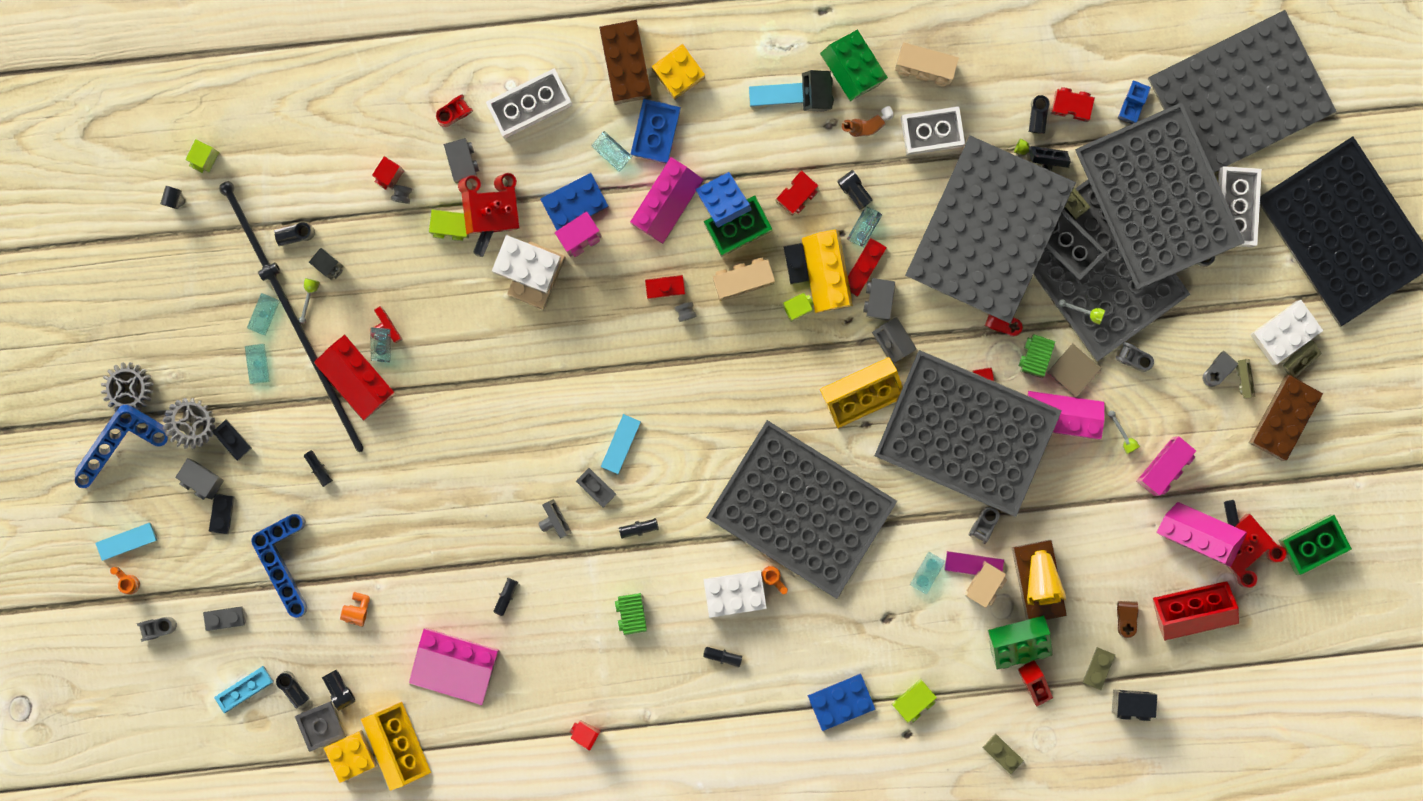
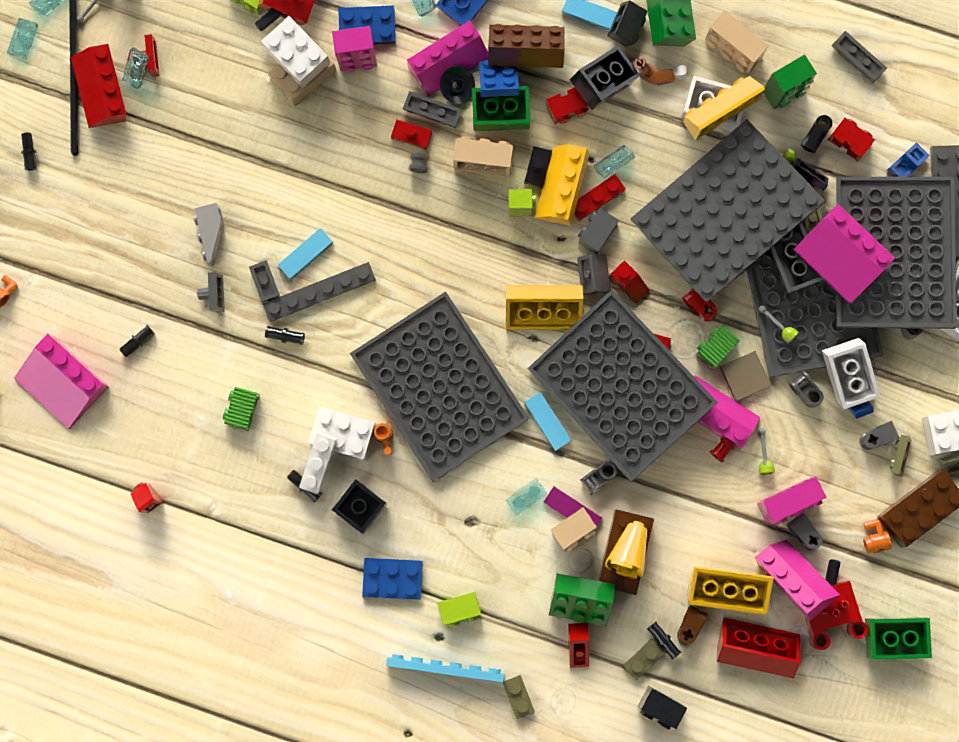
camera: 30 degrees right, 5 degrees down
(522, 460) = (211, 227): none -> light grey slope
(650, 473) = (319, 292): none -> dark grey plate
(674, 255) = (432, 109): none -> dark grey plate
(693, 221) = (465, 83): none -> black dish
(727, 631) = (317, 463): none -> white plate
(734, 157) = (526, 46): none -> reddish brown brick
(782, 652) = (359, 506): none -> black brick
(821, 154) = (604, 77): none -> black brick
(852, 185) = (620, 120): black piece -> none
(914, 495) = (547, 421): none -> medium azure tile
(930, 333) = (629, 282): none -> red slope
(934, 757) = (436, 666): none -> medium azure plate
(943, 135) = (723, 107): none -> yellow slope
(991, 84) = (789, 82): none -> green brick
(1044, 22) = (859, 56): none -> dark grey plate
(1088, 443) = (720, 454): none -> red bush
(1109, 643) = (664, 640): none -> black pin
(1113, 222) = (844, 253): none -> dark pink slope
(1147, 573) = (729, 590): none -> yellow slope
(1168, 326) = (851, 373): none -> white brick
(1188, 486) = (803, 529): none -> dark grey piece
(1190, 351) = (861, 409): none -> blue plate
(1260, 465) = (877, 542): none -> orange piece

